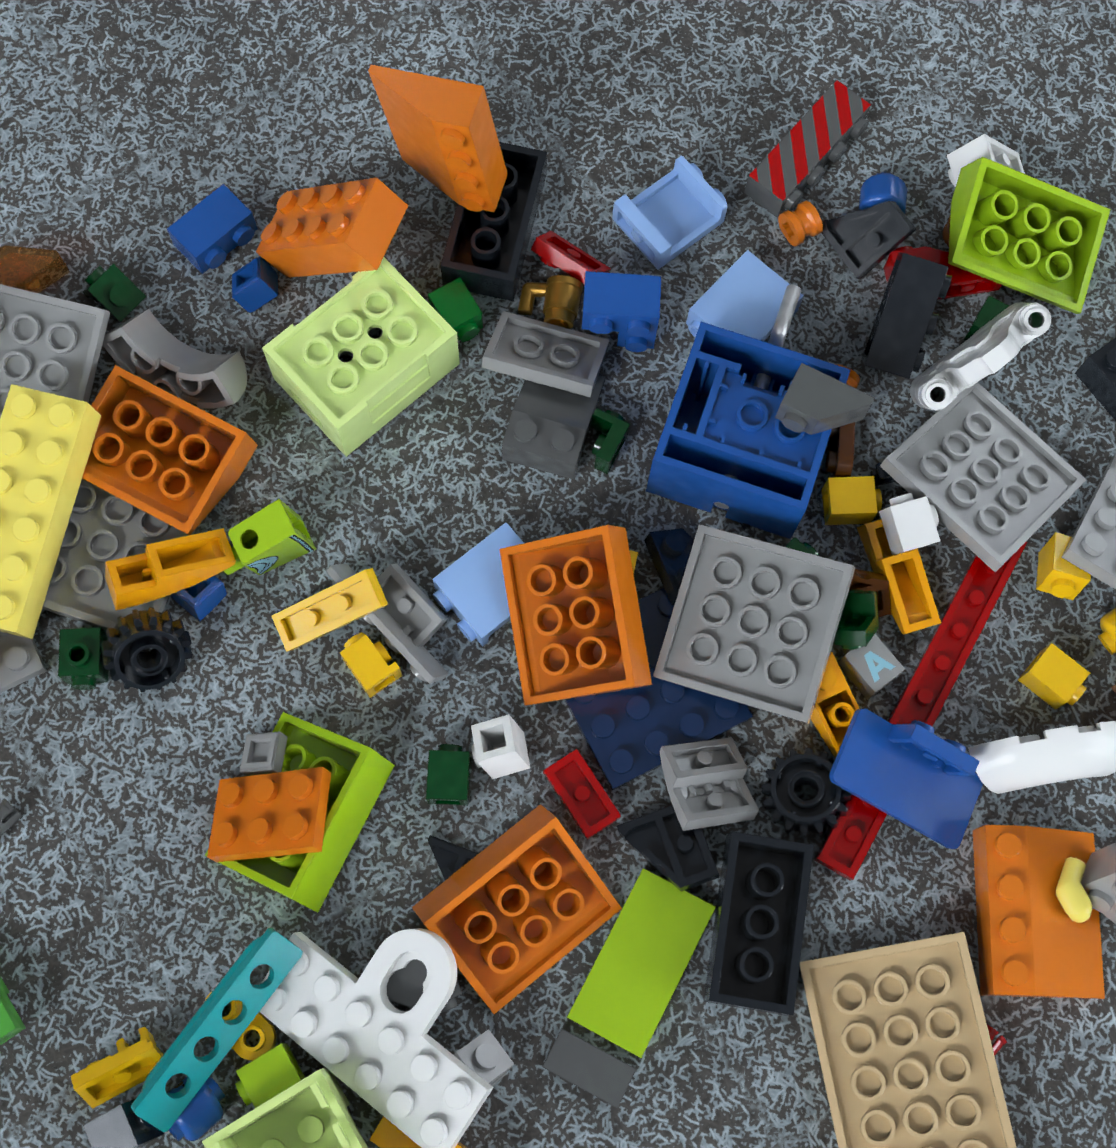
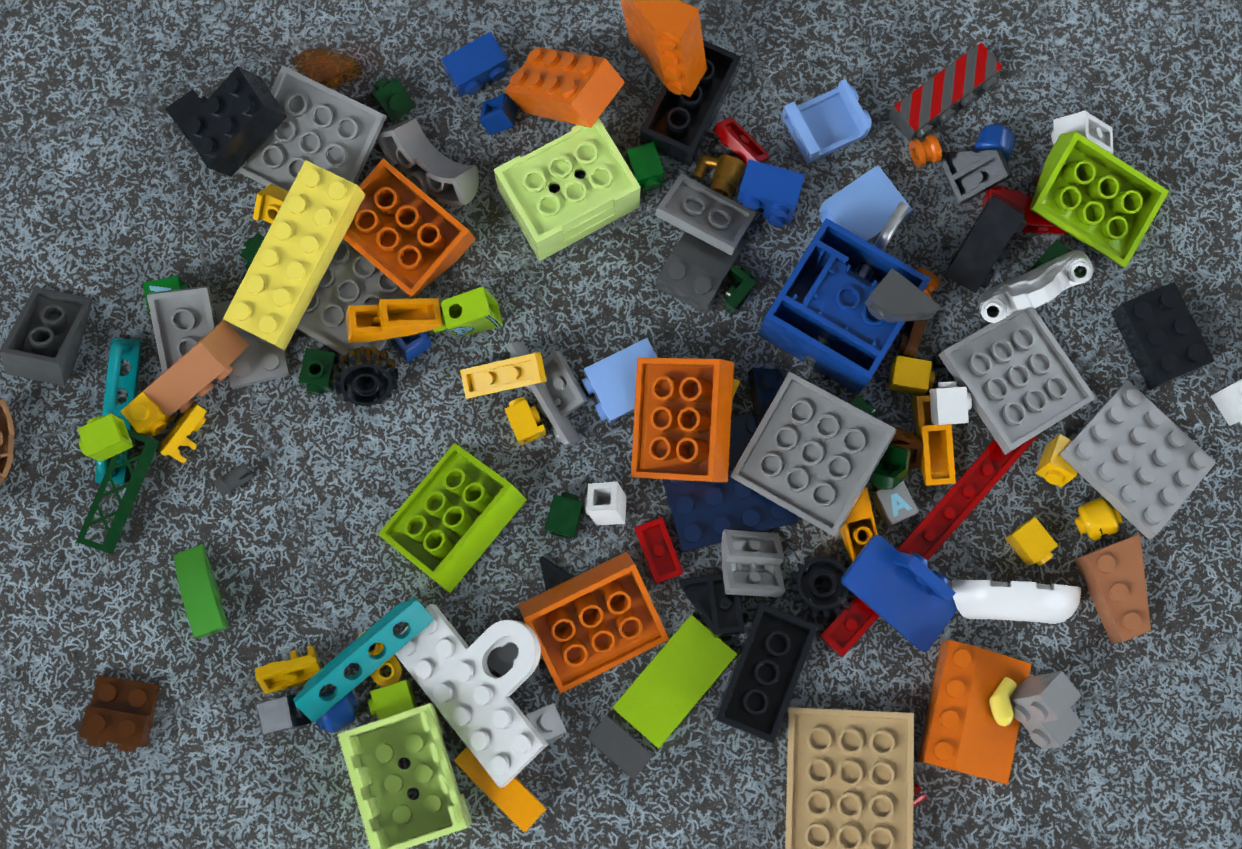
camera: 15 degrees right, 5 degrees up
(263, 753) = (434, 470): light grey tile -> none
(270, 815) = (430, 516): orange plate -> none

